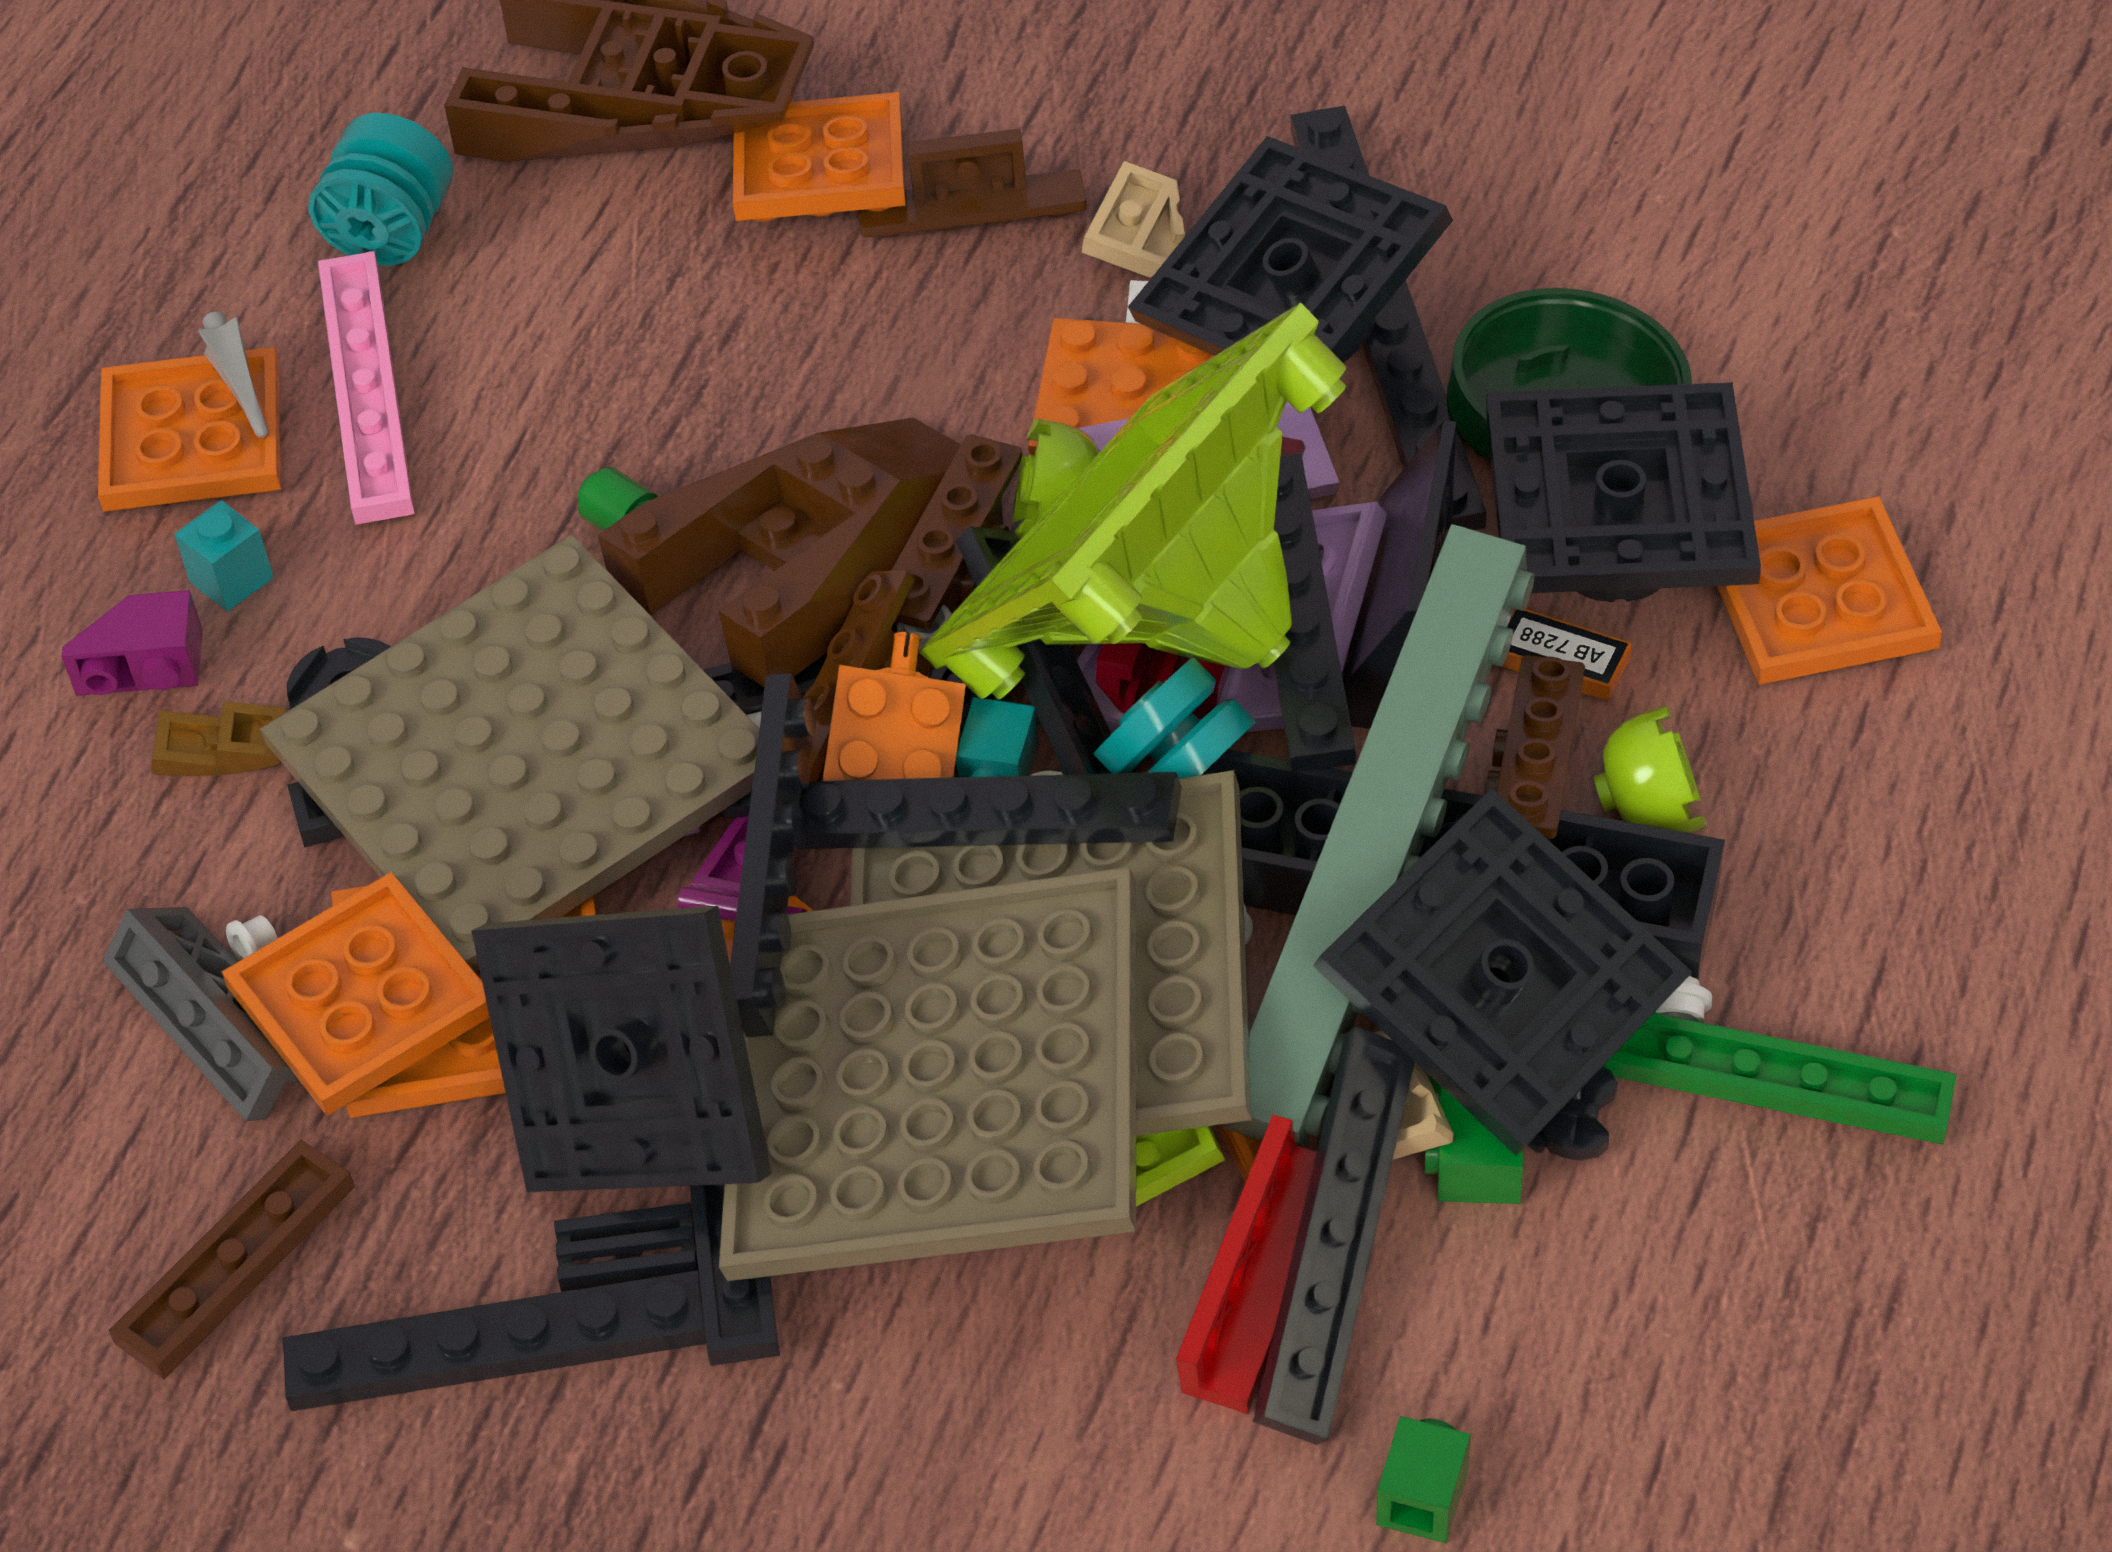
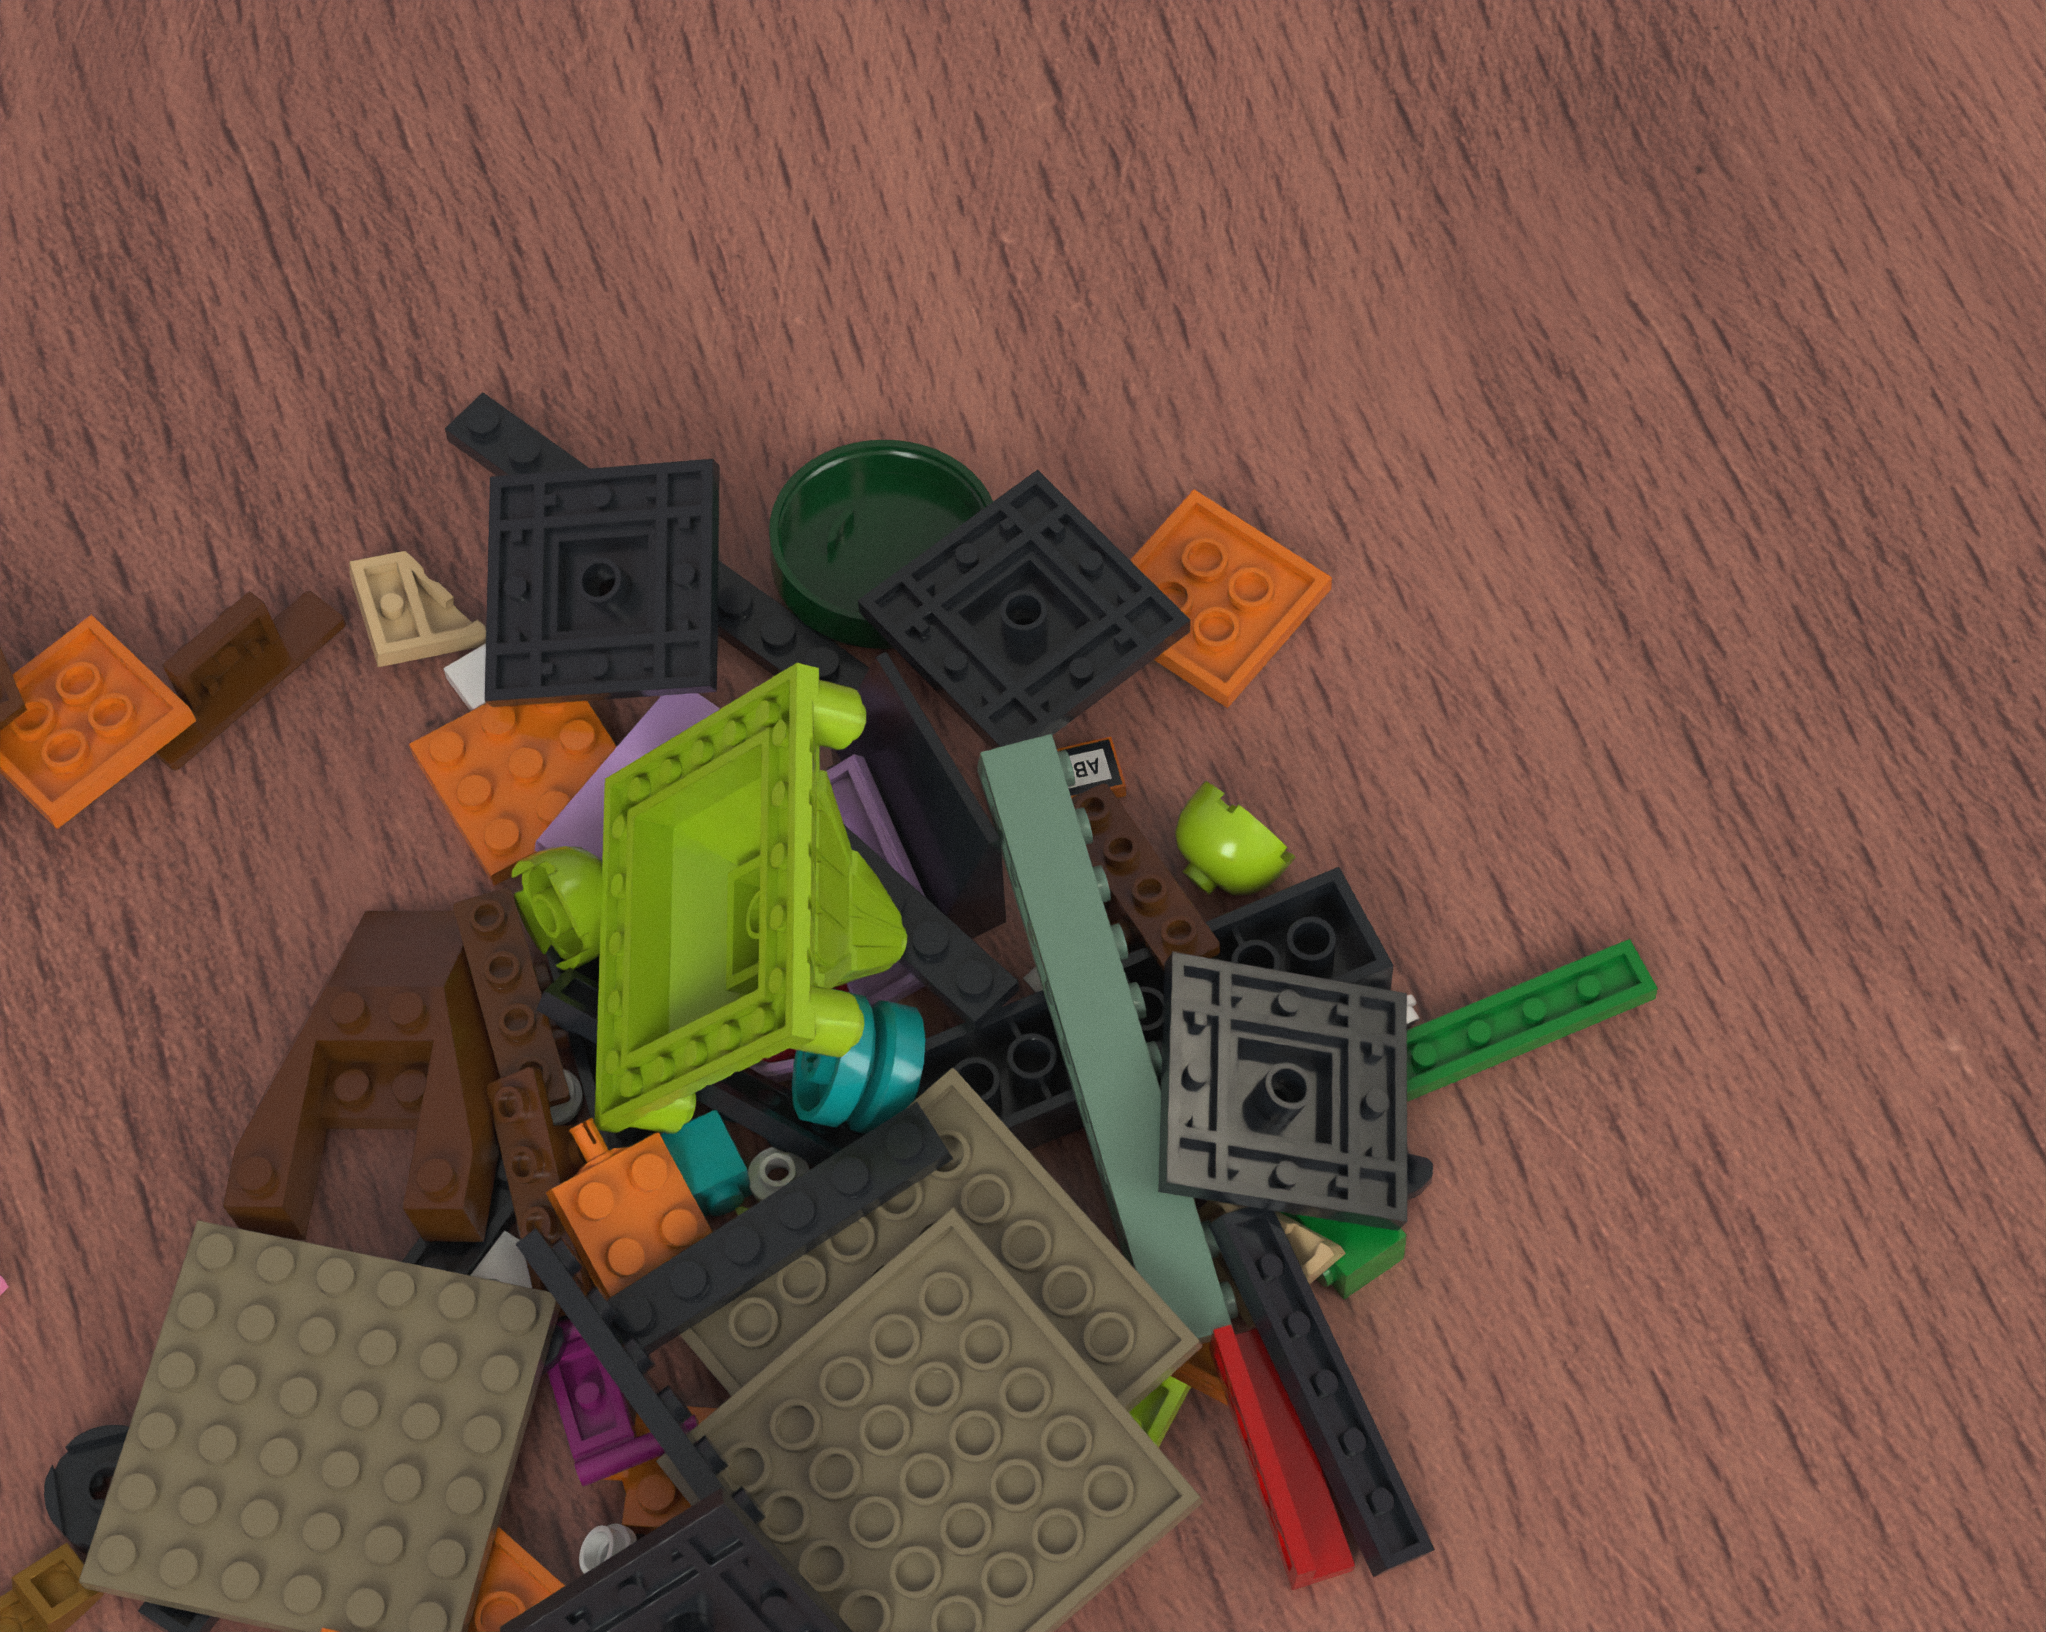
camera: 40 degrees left, 10 degrees up
(609, 497) = (192, 1160): green brick -> none
(1423, 1478) = (1528, 1528): green brick -> none

